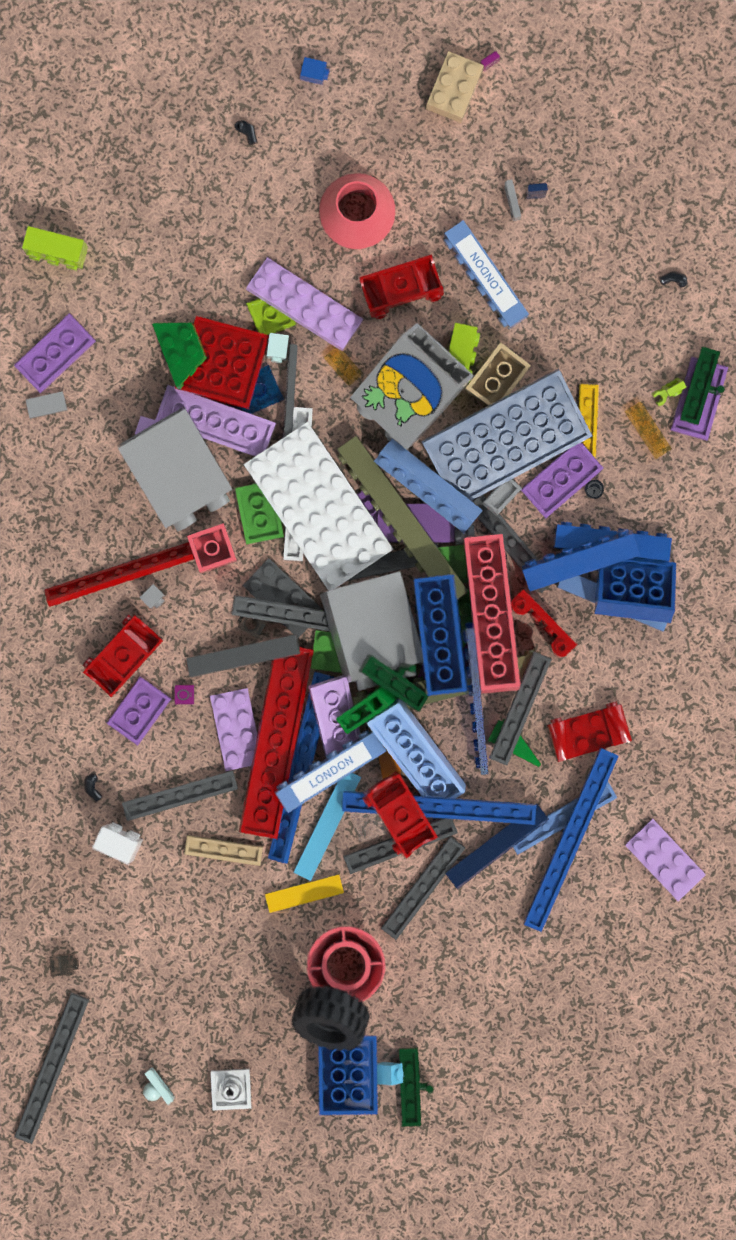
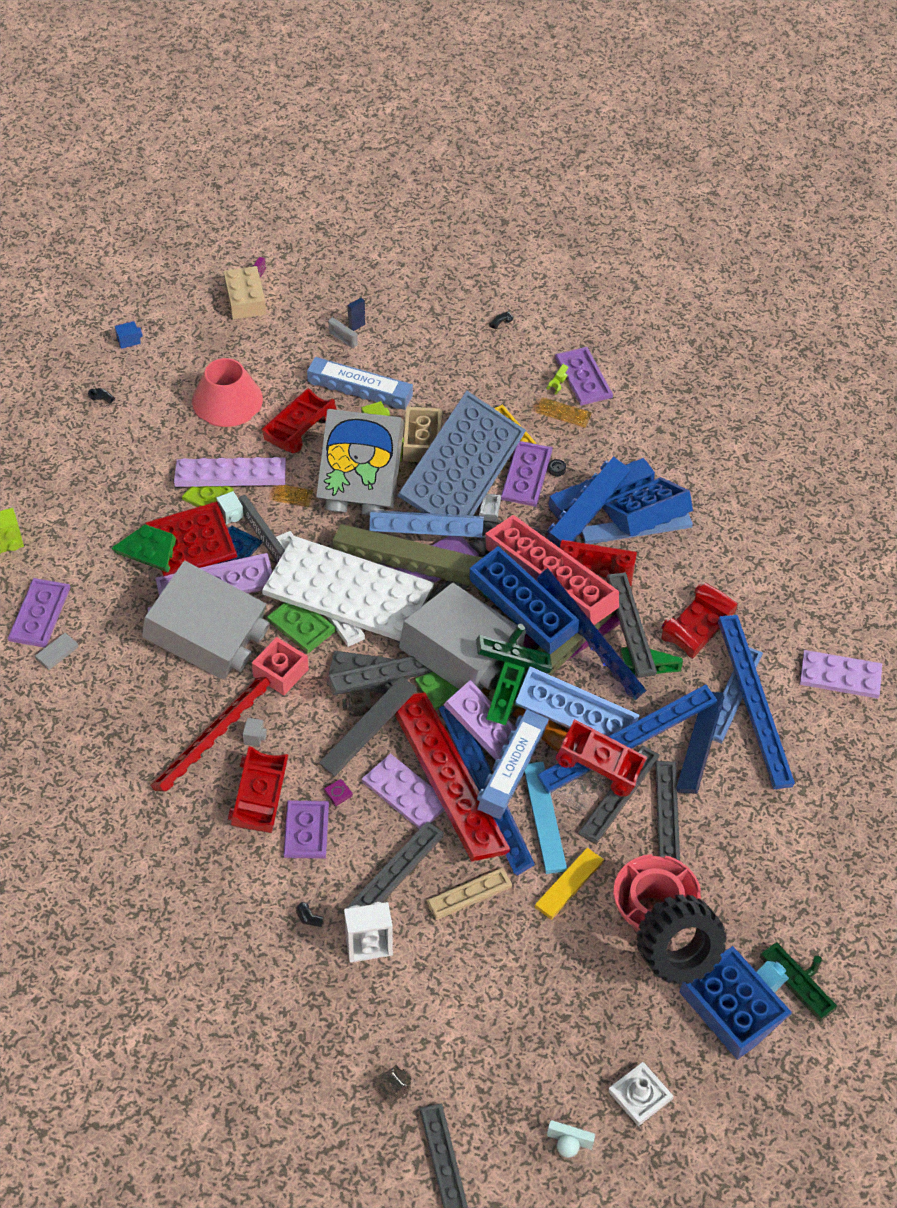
camera: 35 degrees left, 35 degrees down
(701, 386) = (578, 362): dark green plate -> none

